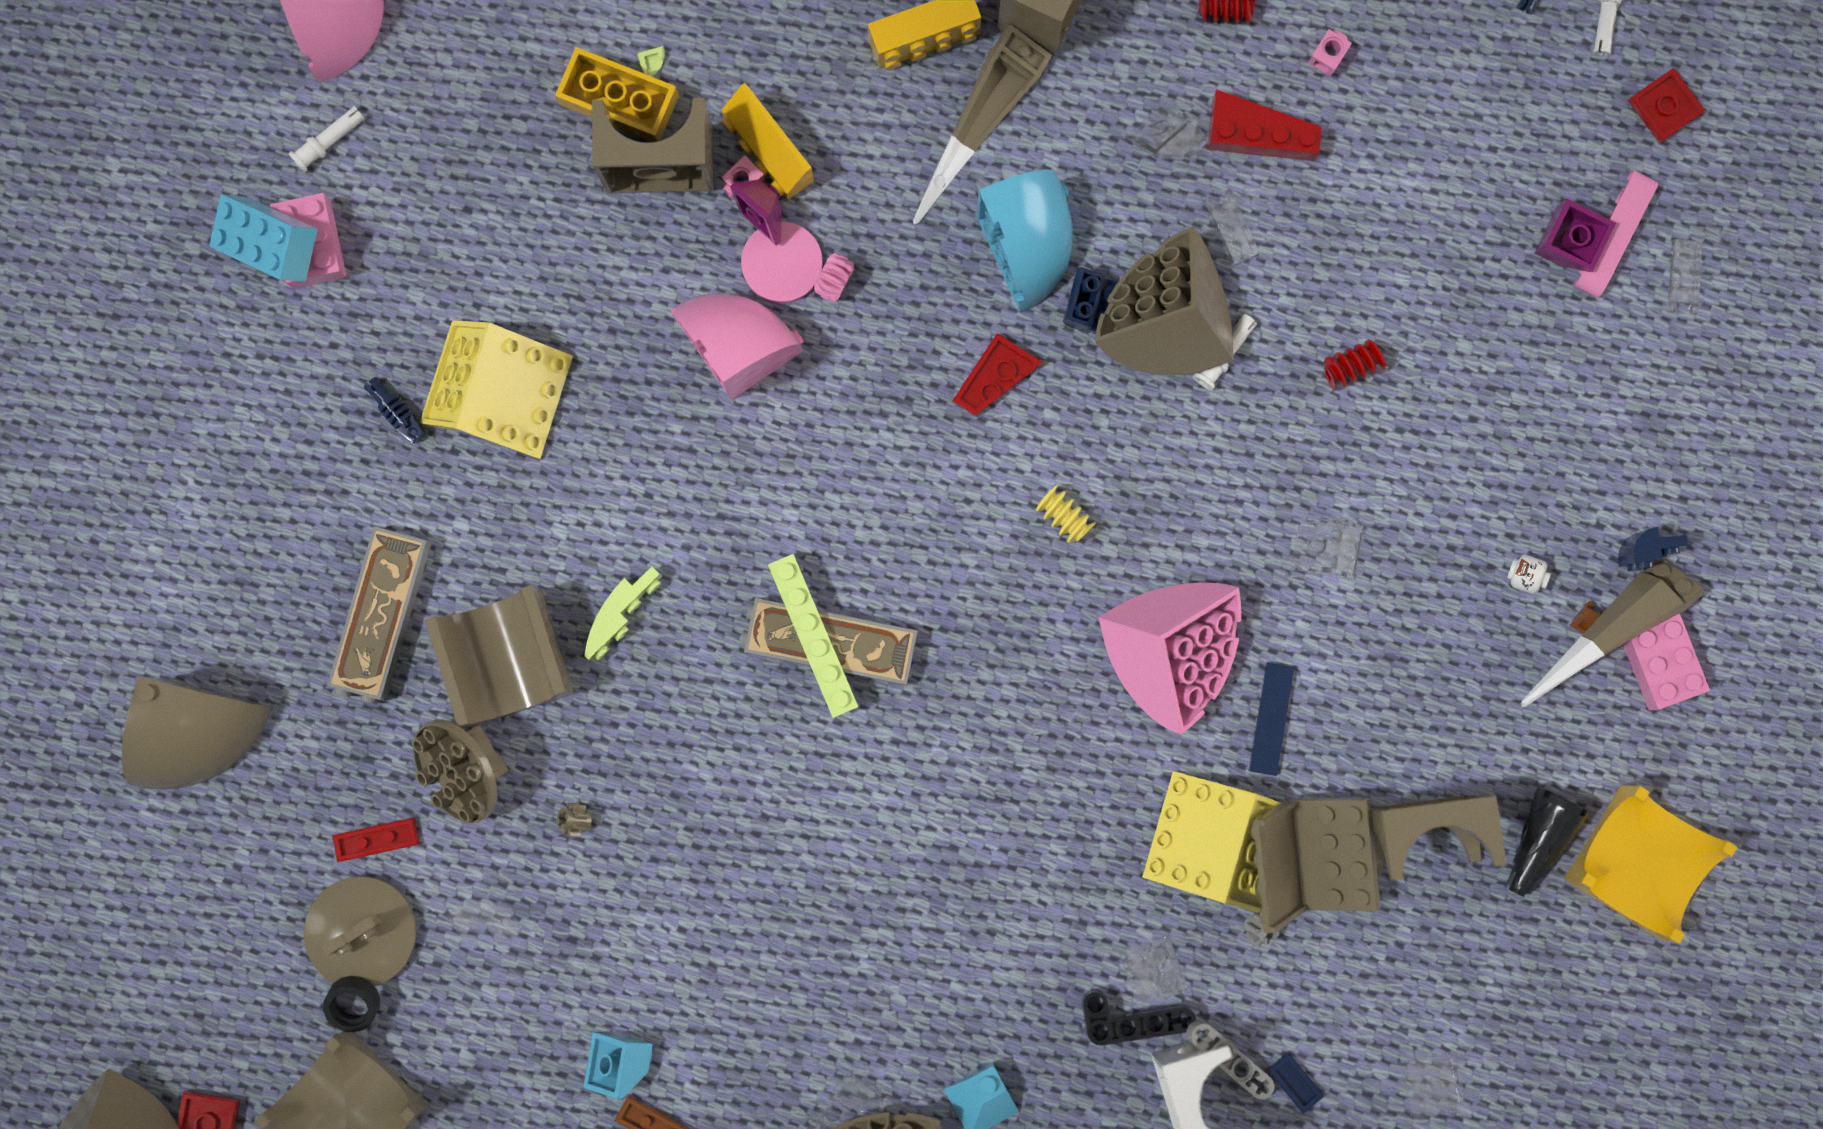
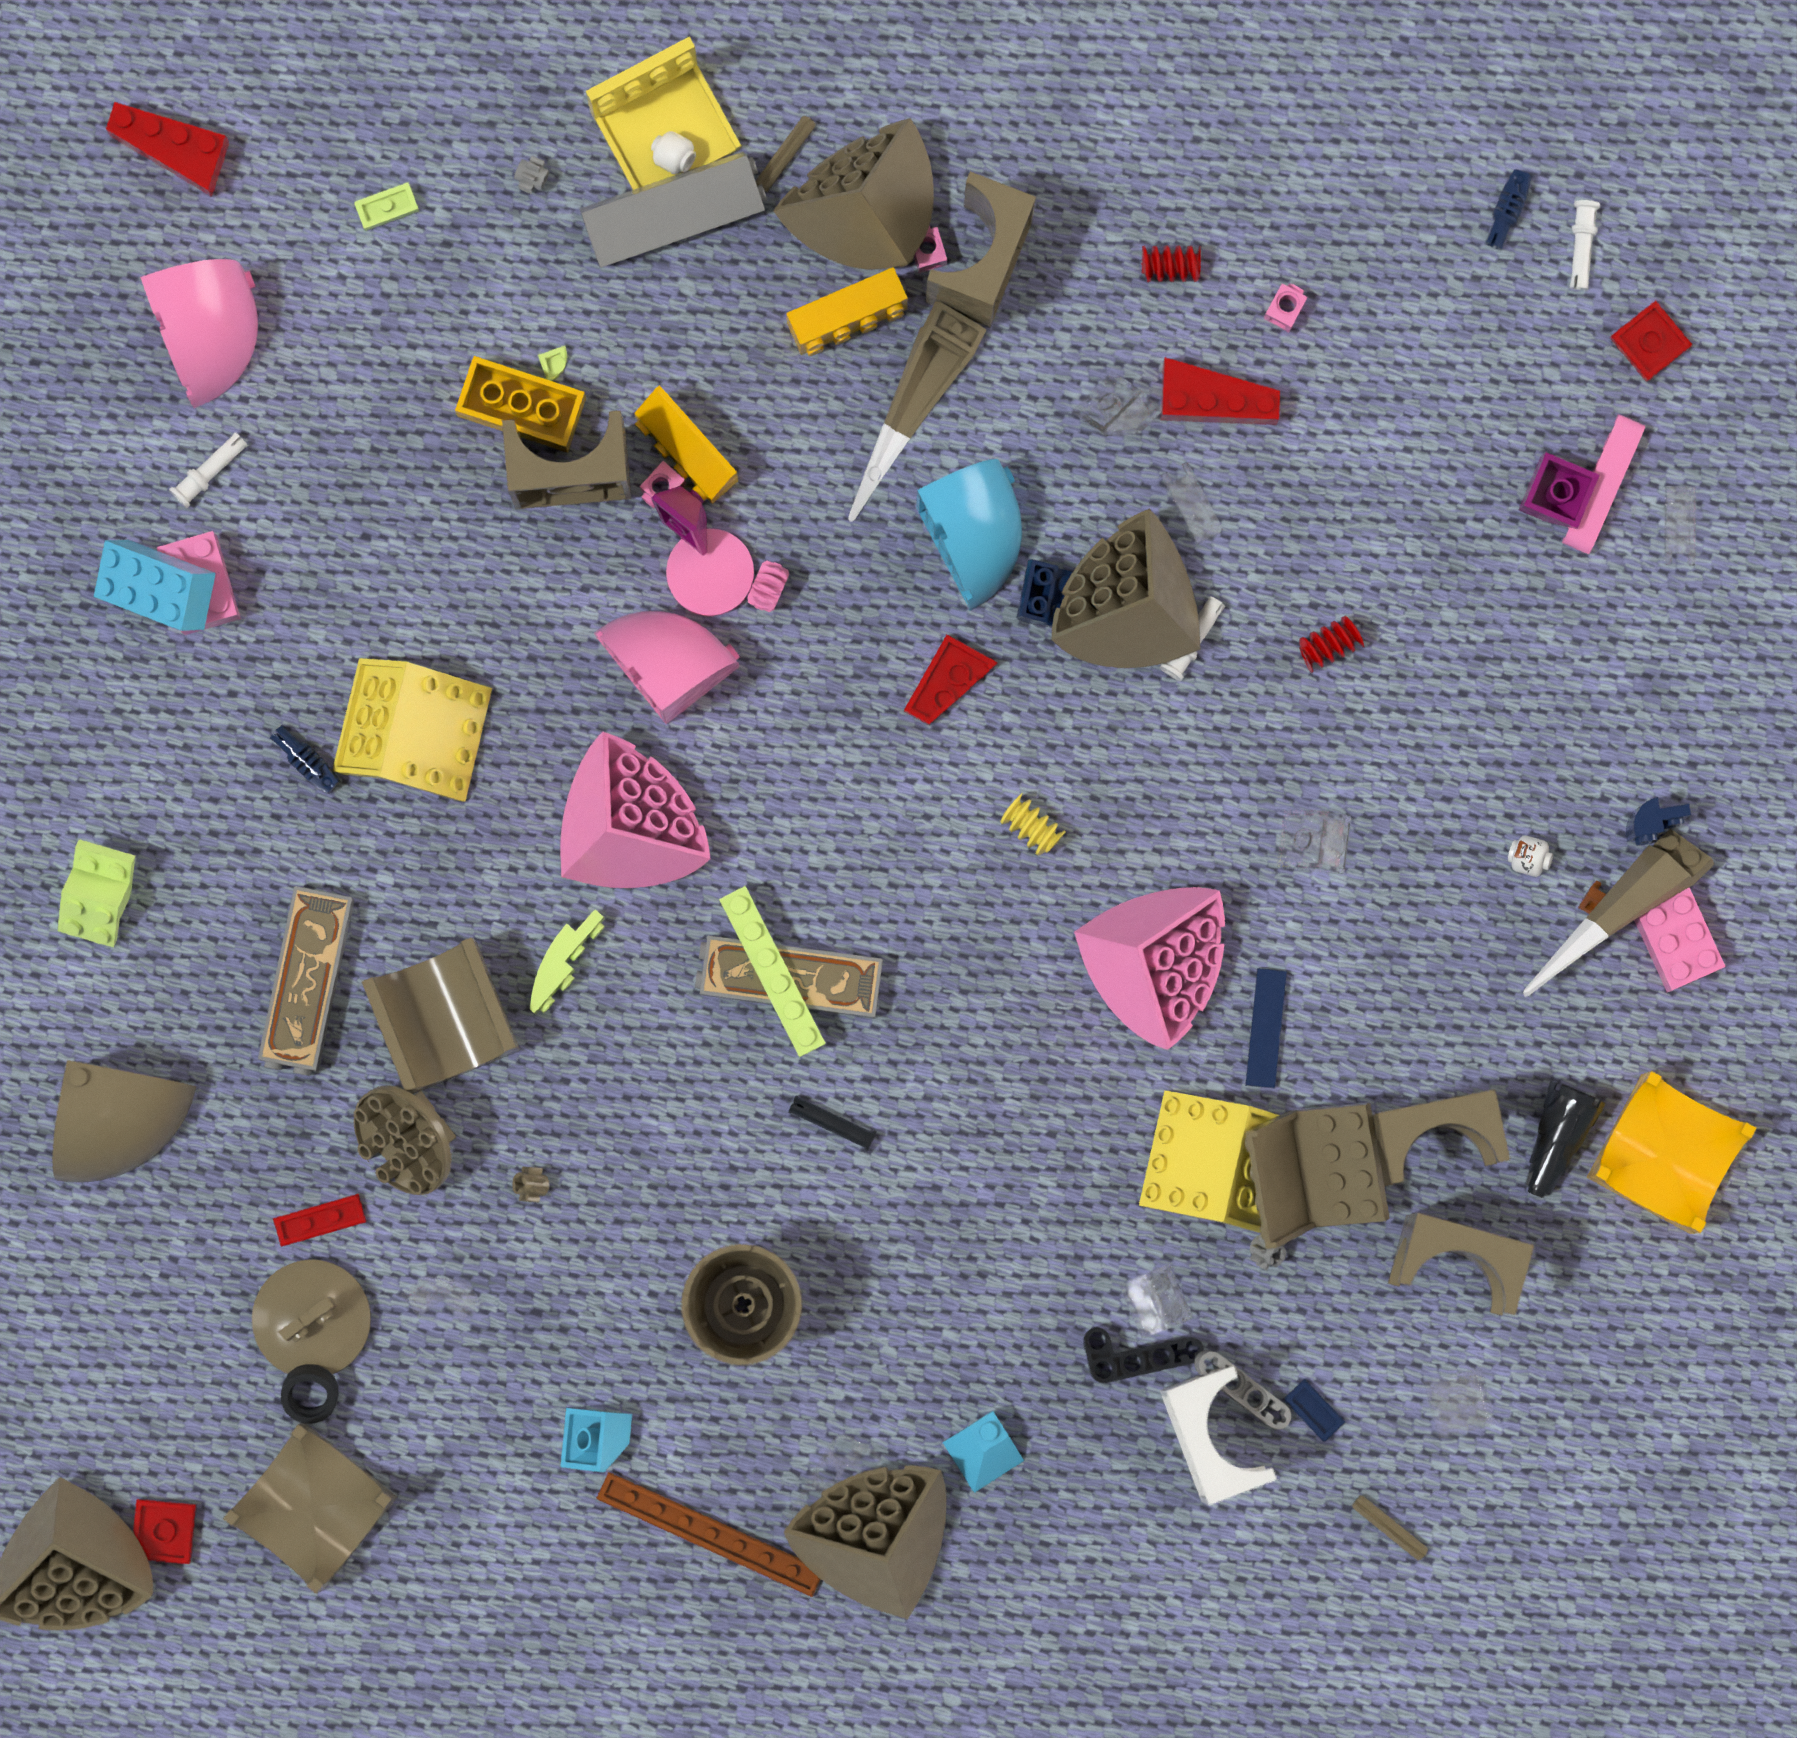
camera: 10 degrees left, 0 degrees up
(189, 520) = (96, 893): none -> yellowish green bracket
(689, 486) = (628, 821): none -> bright pink brick
(744, 974) = (714, 1292): none -> dark tan cone
(860, 780) = (832, 1122): none -> black pin
(1484, 958) = (1498, 1257): none -> dark tan piece

